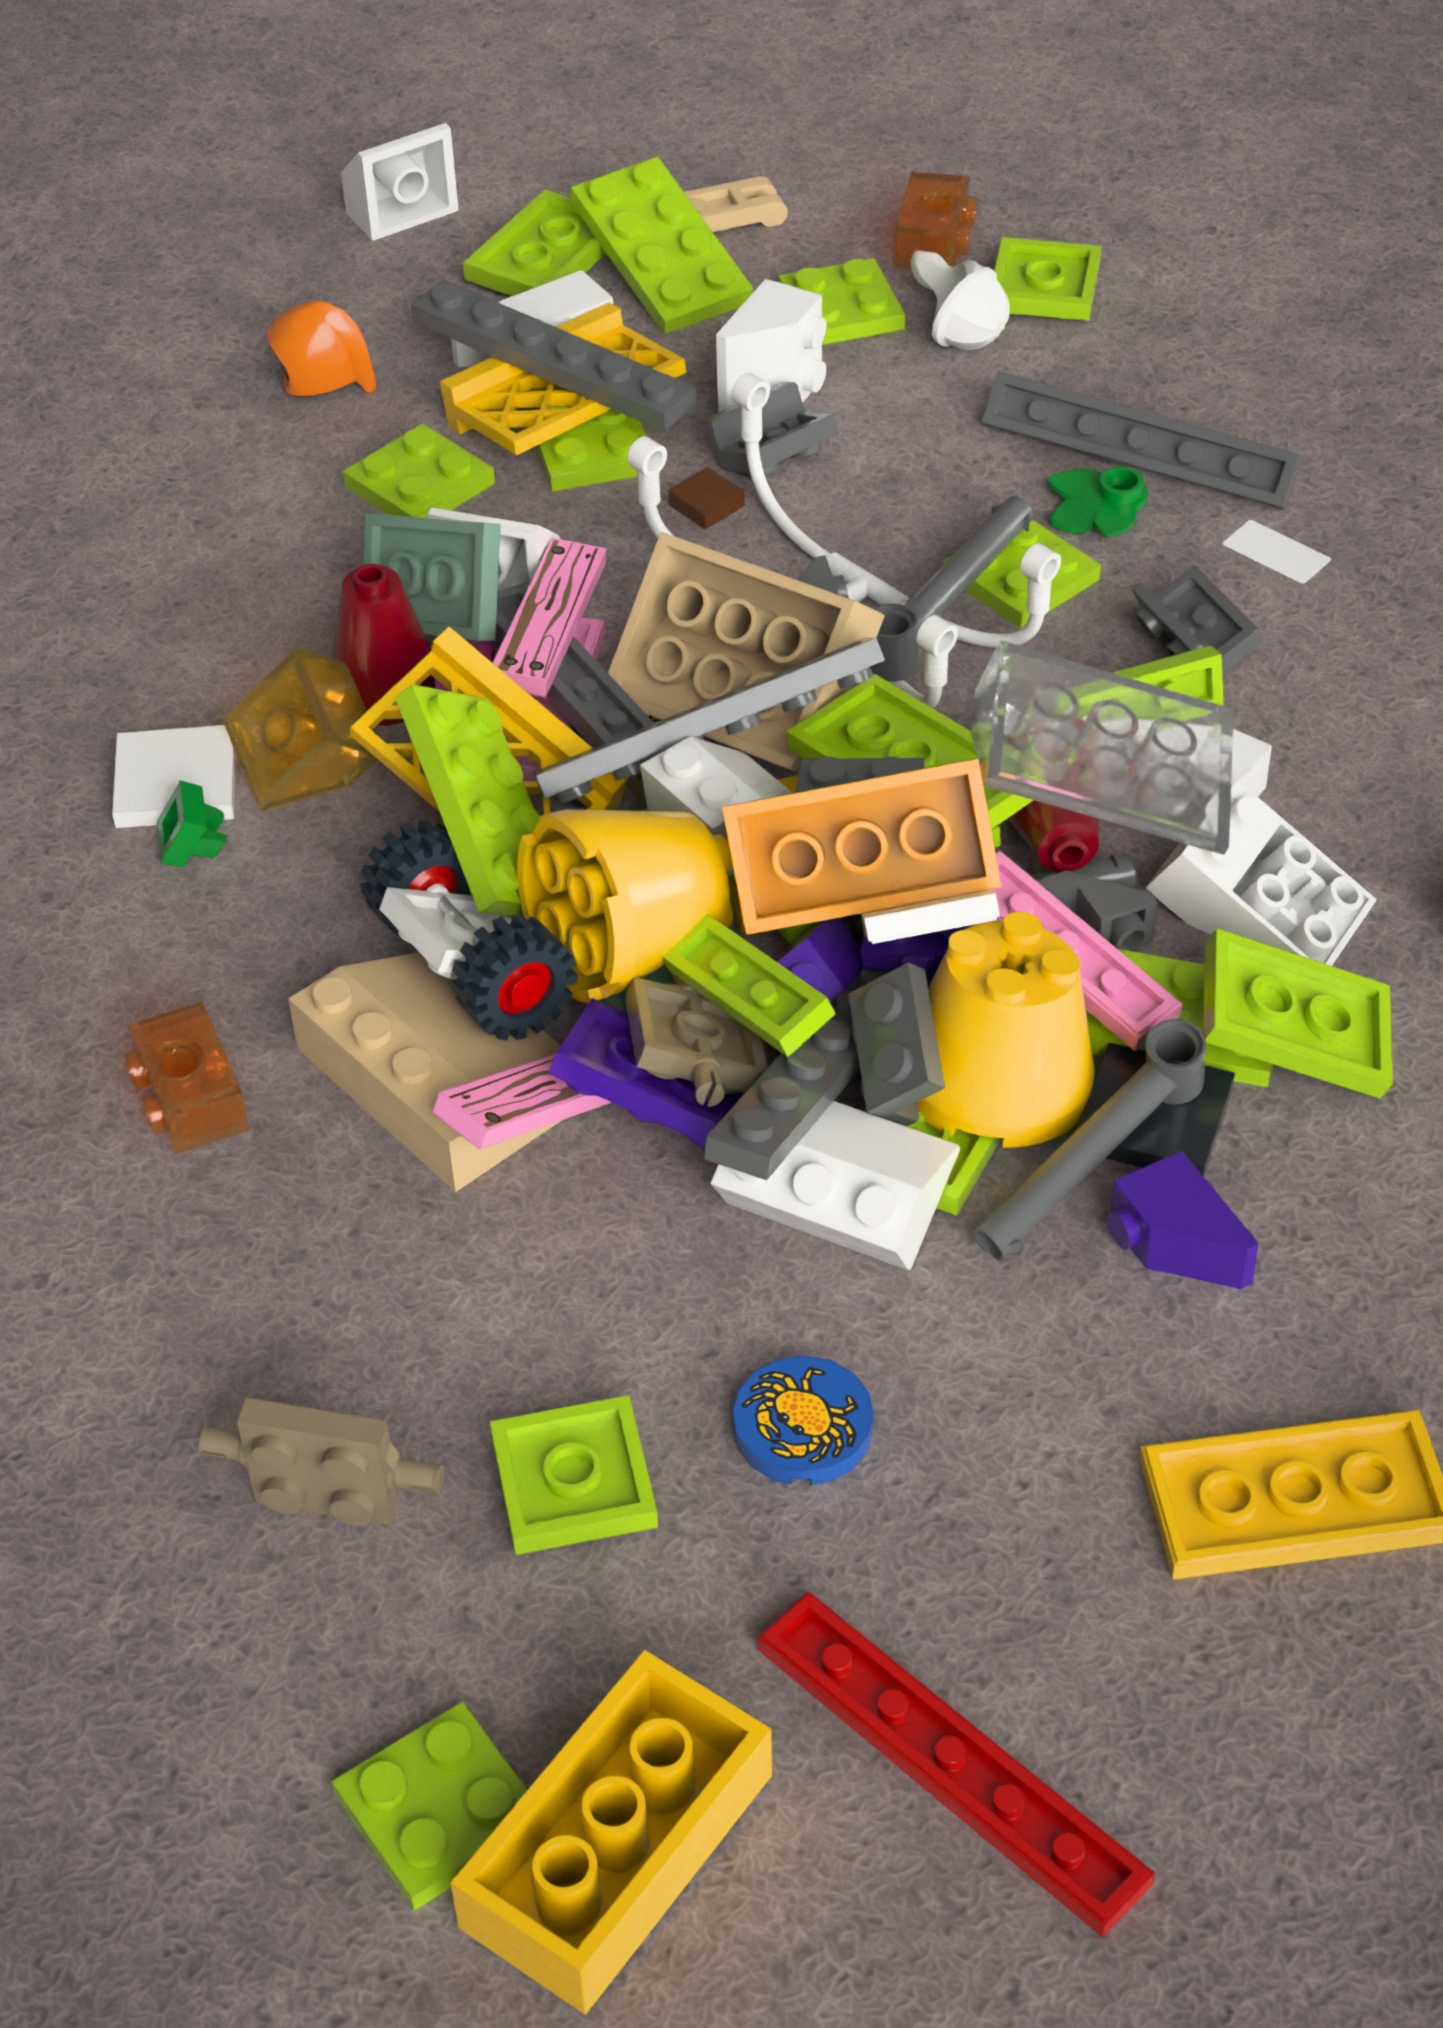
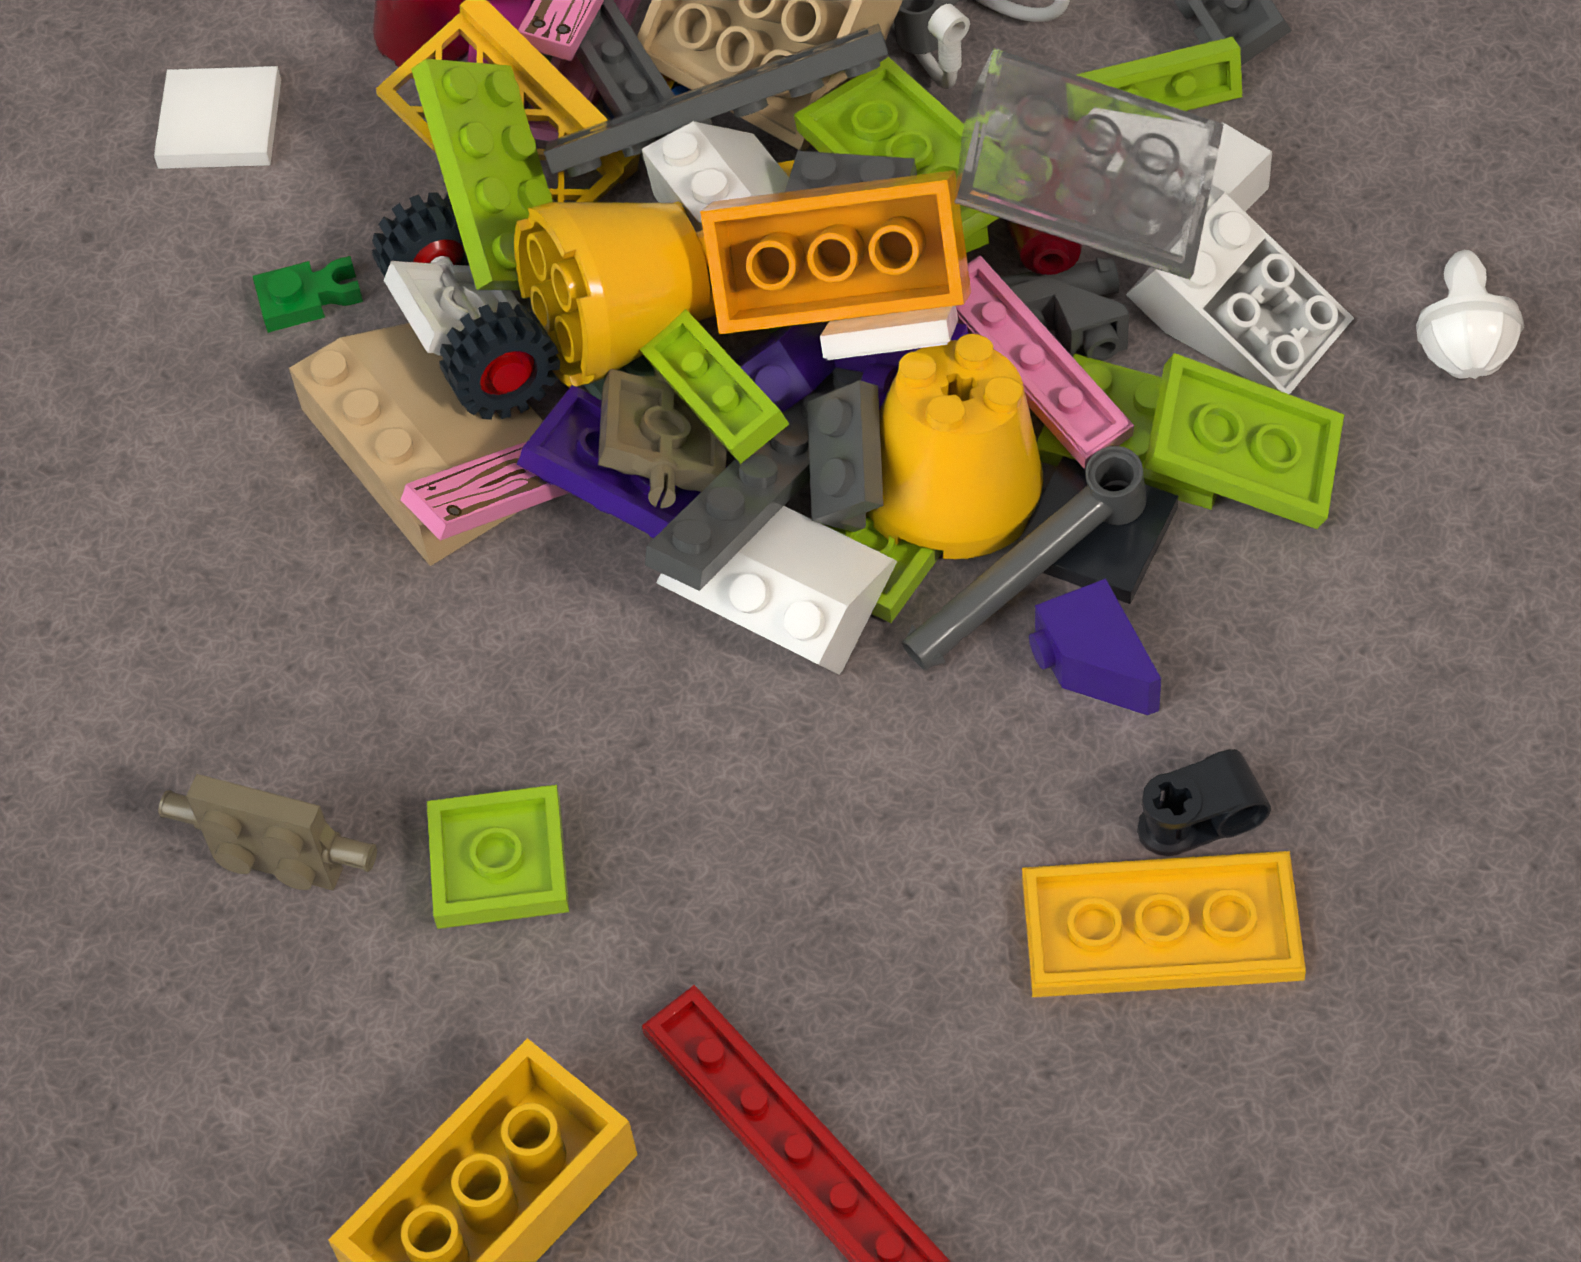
camera: 10 degrees right, 10 degrees up
(187, 1078) = (192, 438): clear orange brick -> none
(189, 826) = (222, 174): green tile -> none
(283, 938) = (297, 294): none -> green plate
(297, 731) = (331, 77): clear yellow slope -> none
(430, 1801) = (332, 1152): lime plate -> none
(803, 1420) = (716, 817): tile -> none
(1318, 1370) = (1203, 802): none -> black piece

